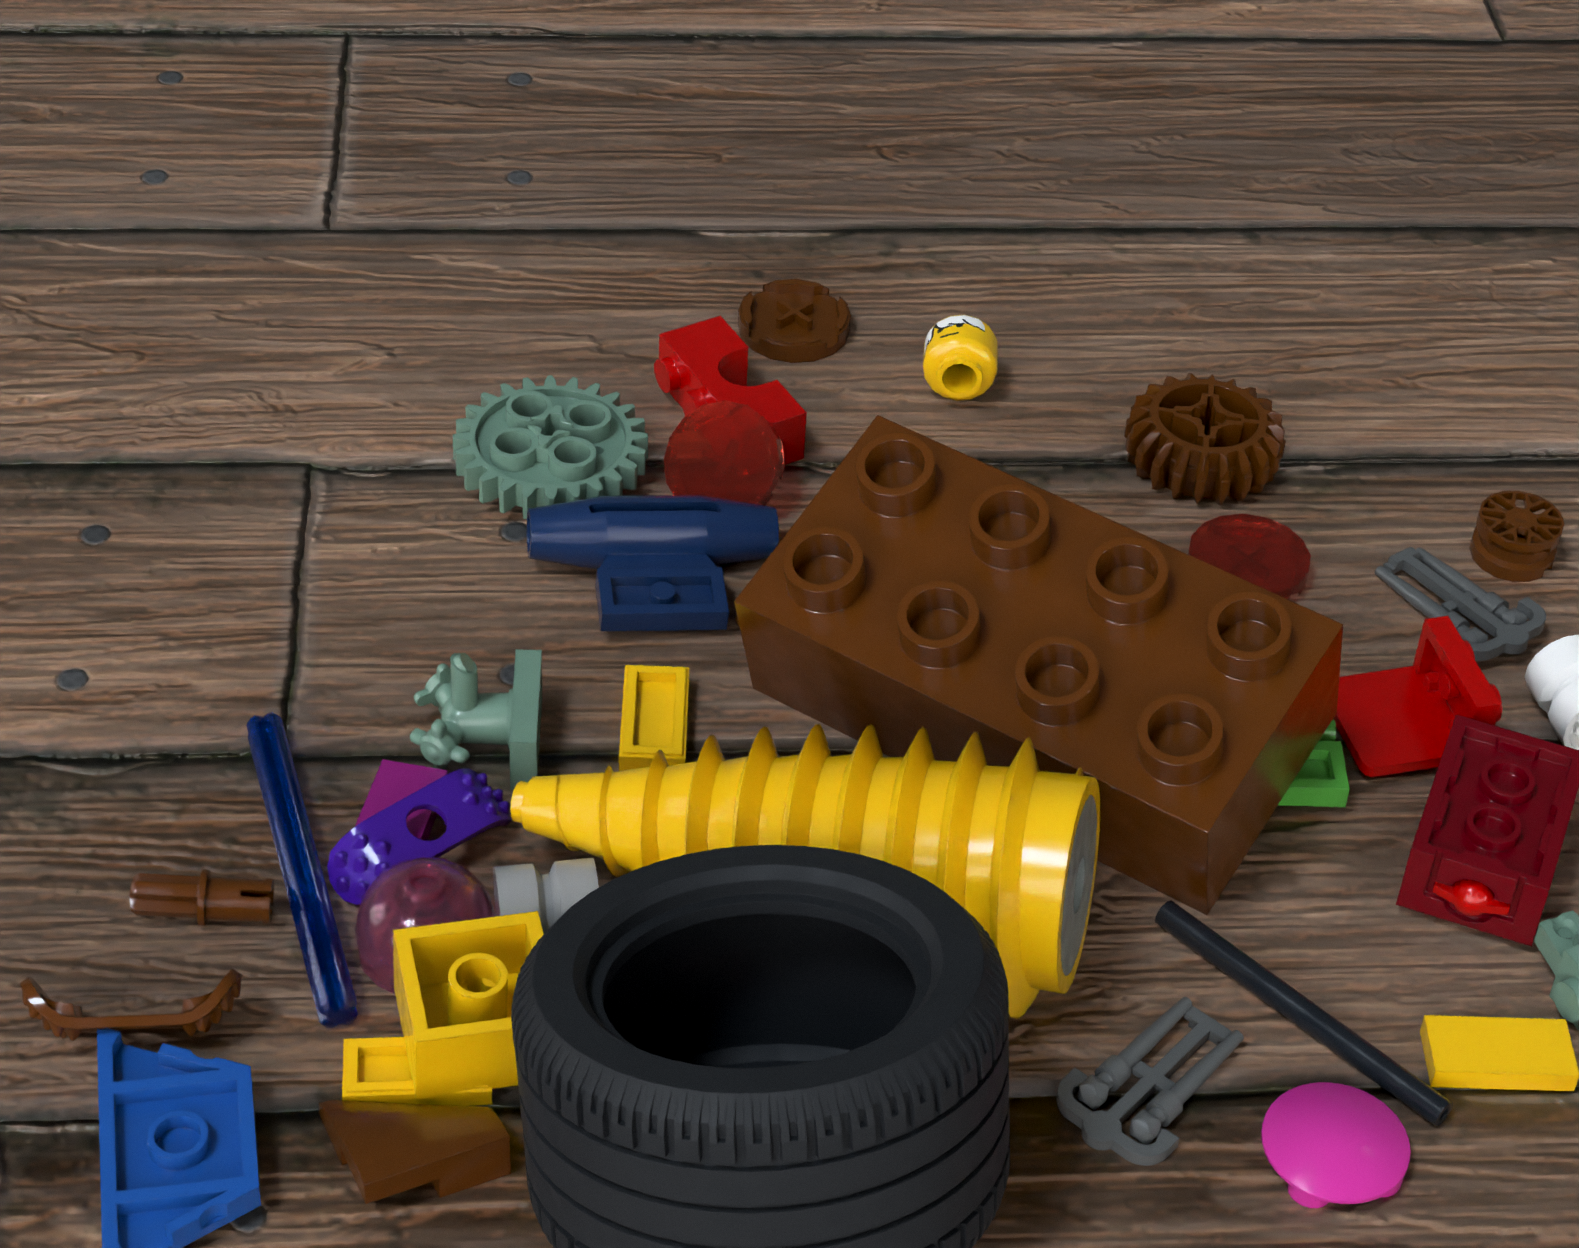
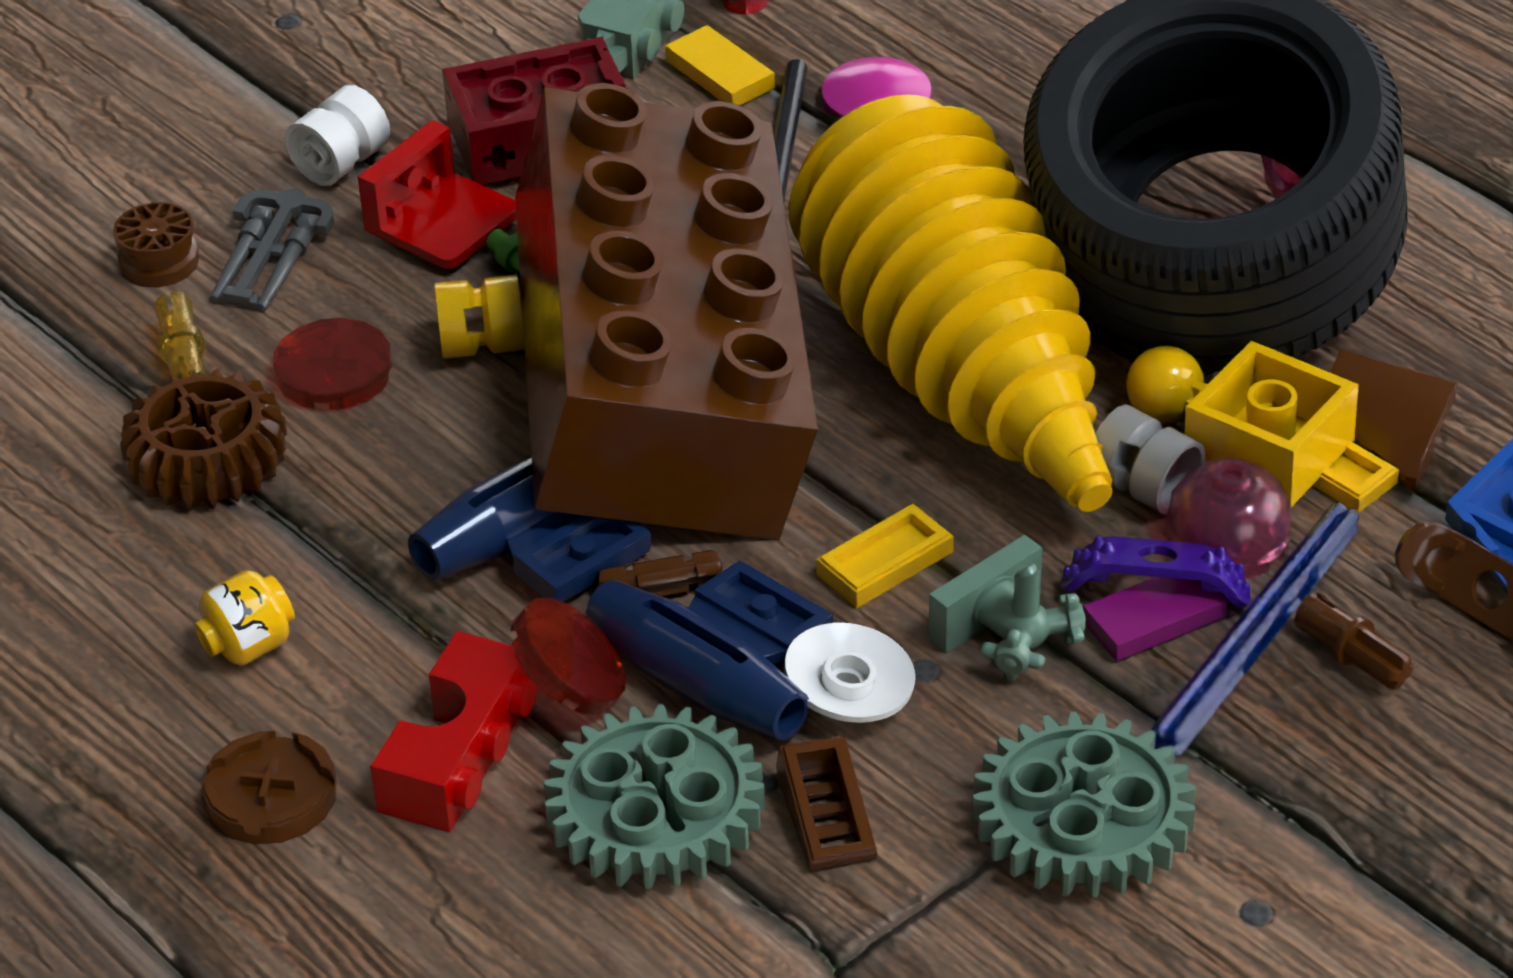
camera: 125 degrees left, 0 degrees up
(305, 641) = (1084, 804): none -> sand green gear
(469, 531) = (815, 760): none -> reddish brown slope
(537, 594) = (850, 672): none -> white dish
(1352, 488) = (180, 340): none -> clear yellow pin

